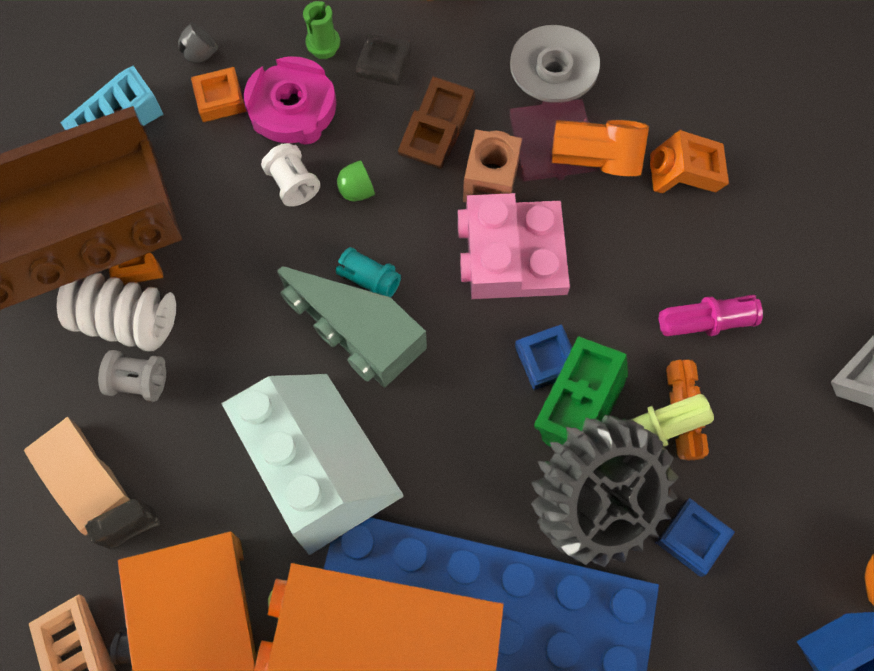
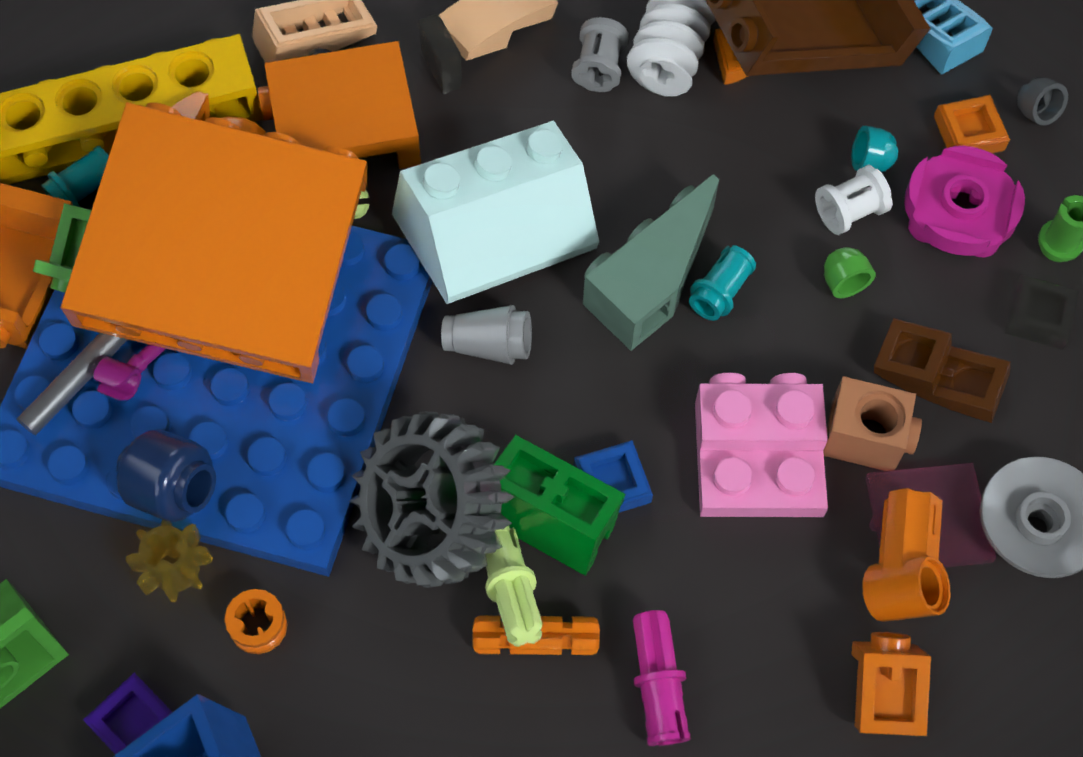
camera: 90 degrees right, 5 degrees down
(235, 159) = (874, 148): none -> teal hinge
(426, 459) = (489, 334): none -> light grey cone
(695, 537) = (378, 625): blue tile -> none
(717, 661) = (247, 602): none -> orange bush

